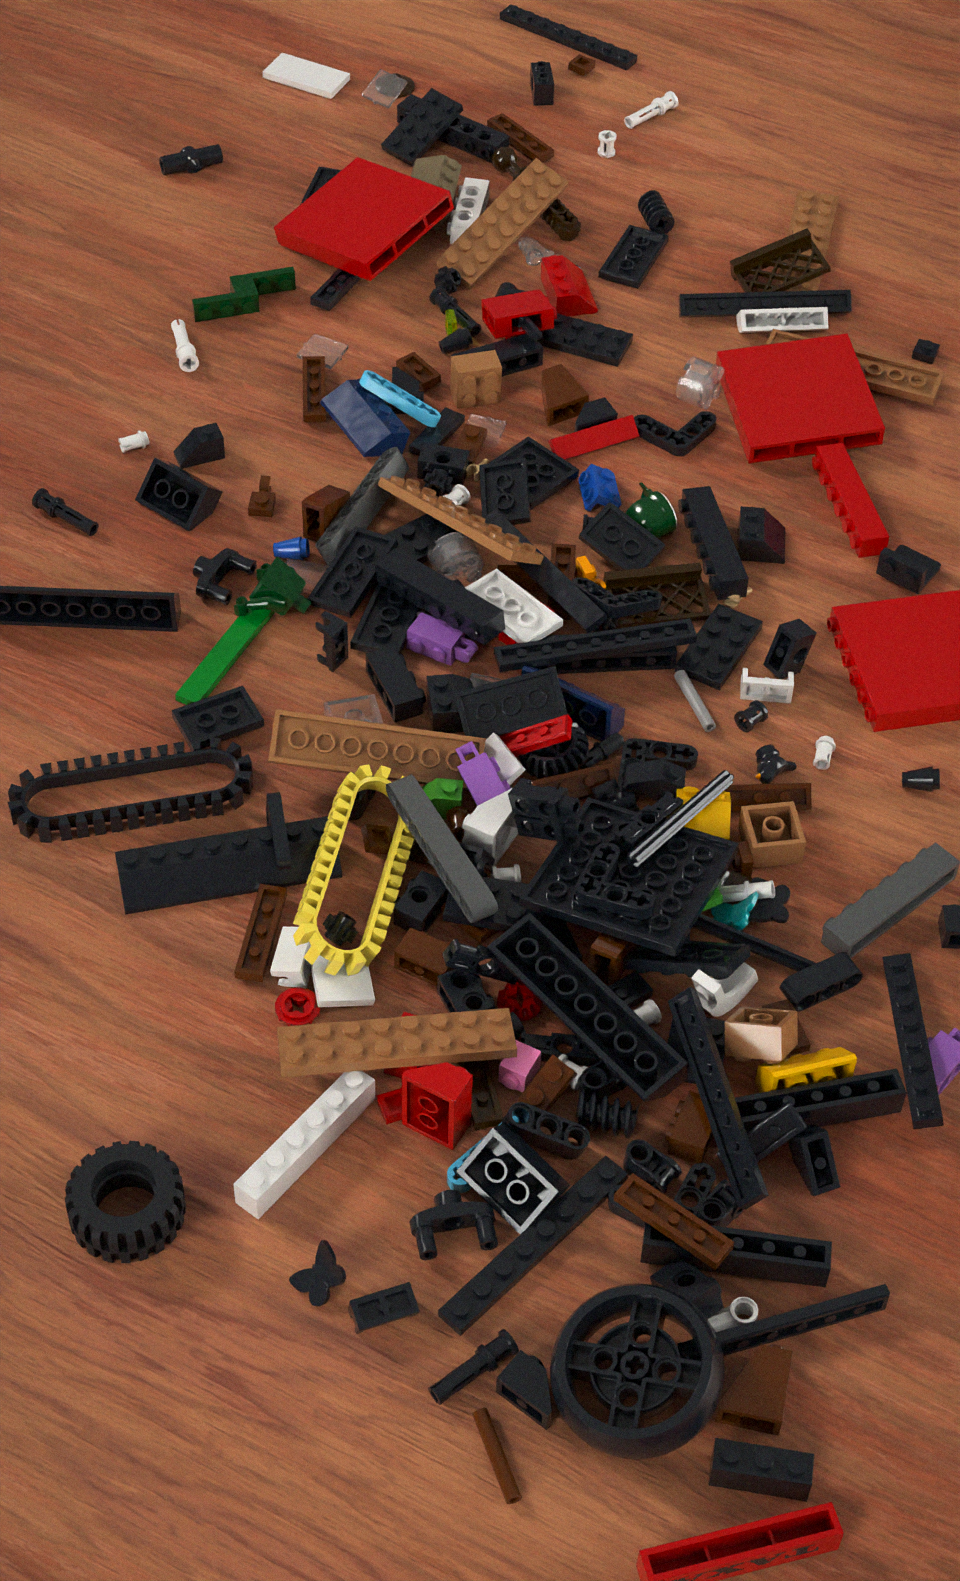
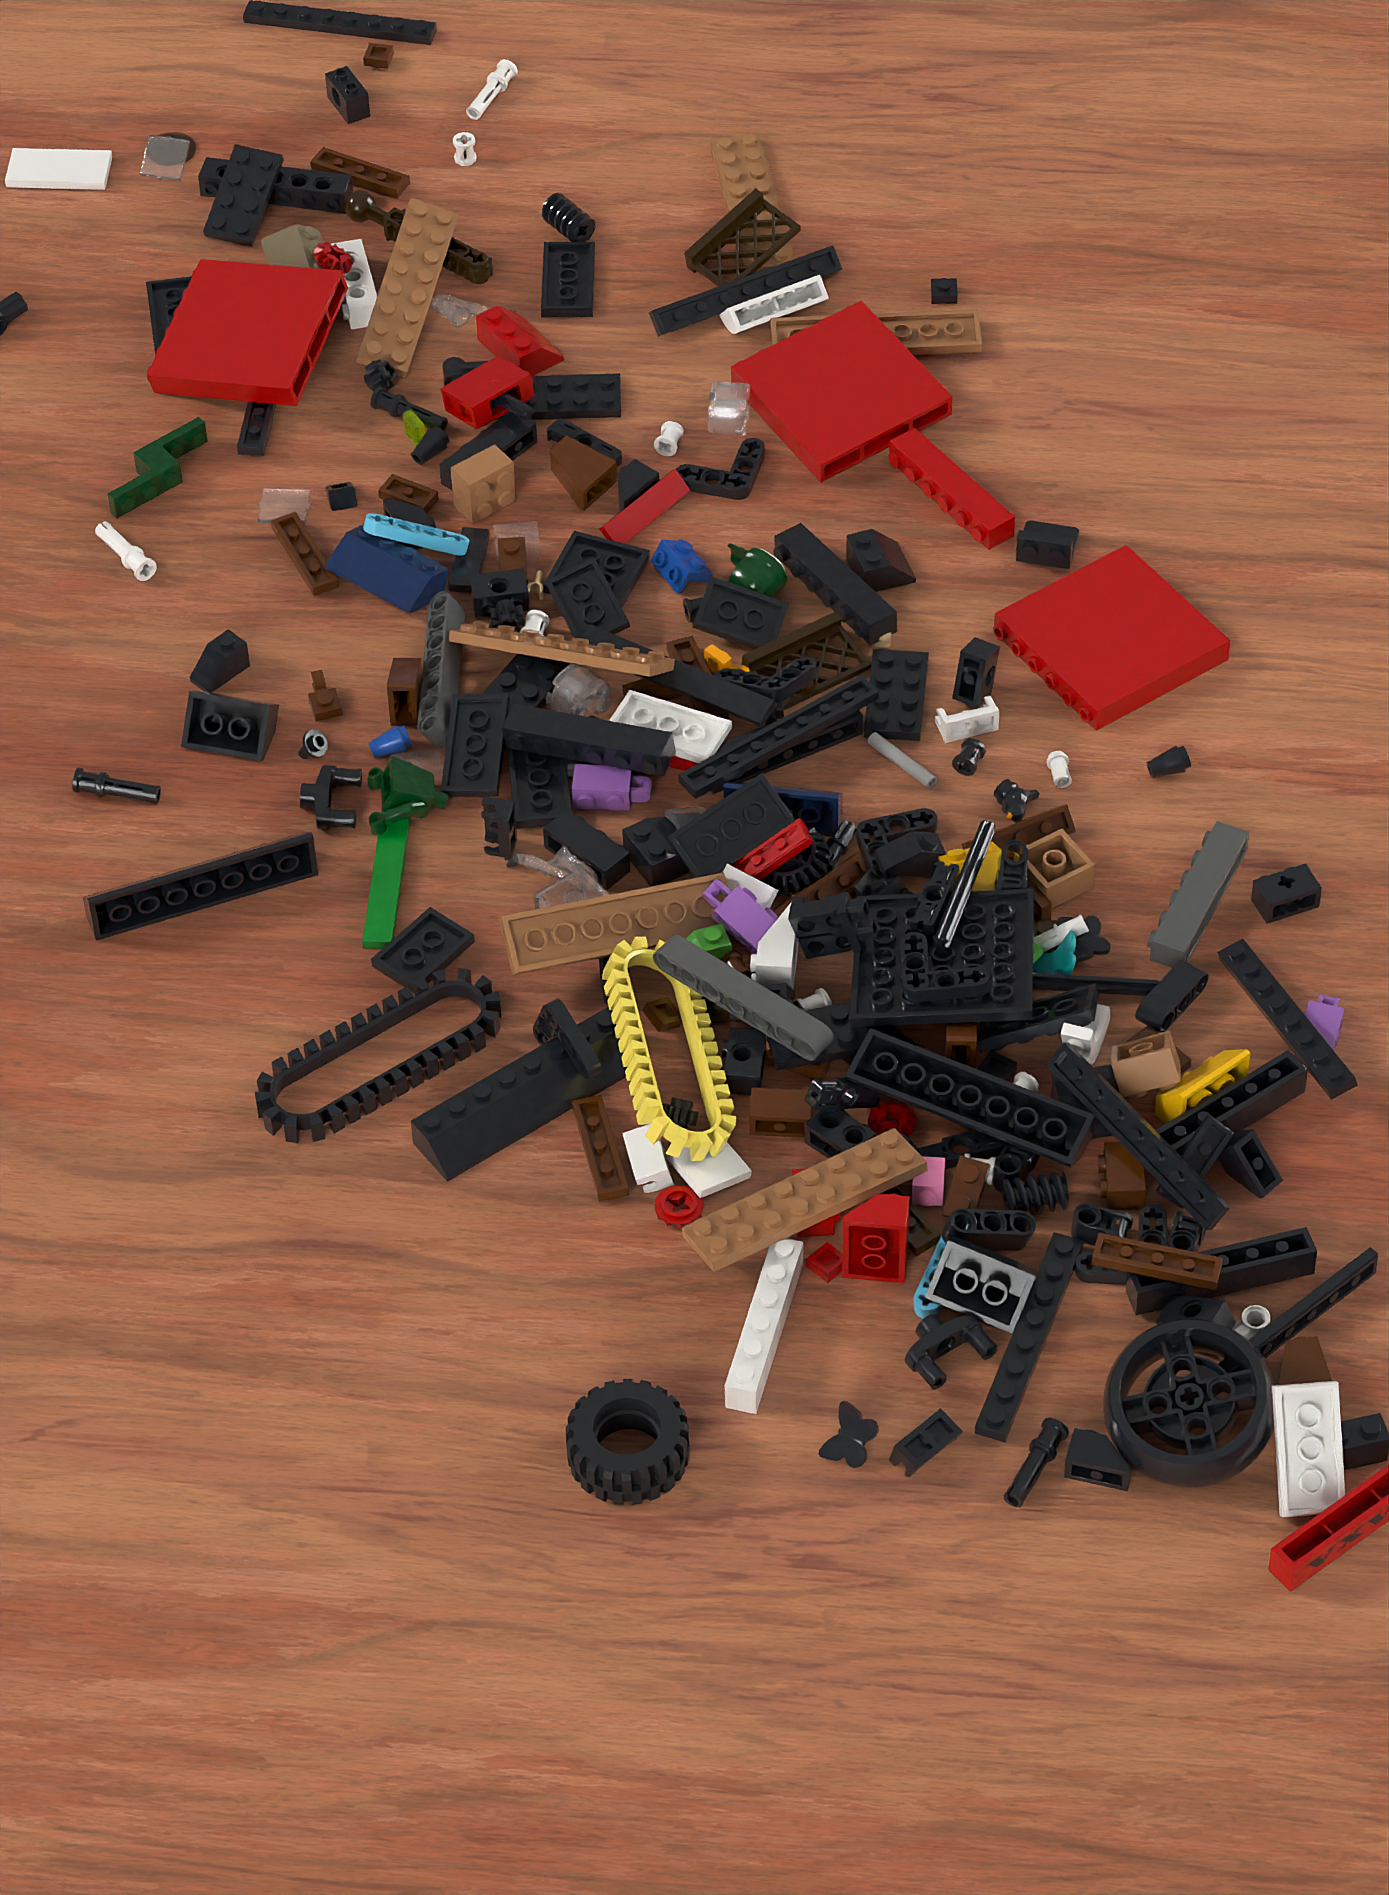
camera: 20 degrees left, 0 degrees up
(134, 441) = (145, 677): white pin -> none
(233, 530) = (314, 744): none -> black plate
(363, 687) = (558, 867): none -> clear piece
(368, 357) = (341, 496): none -> black slope
(457, 185) = (332, 257): none -> red gear
(497, 1456) = (1096, 1528): reddish brown piece -> none
(576, 370) = (562, 427): none -> black piece
(640, 394) = (667, 442): none -> white bush
(724, 1462) = (1308, 1447): none -> white tile
(727, 824) = (1012, 873): none -> black piece

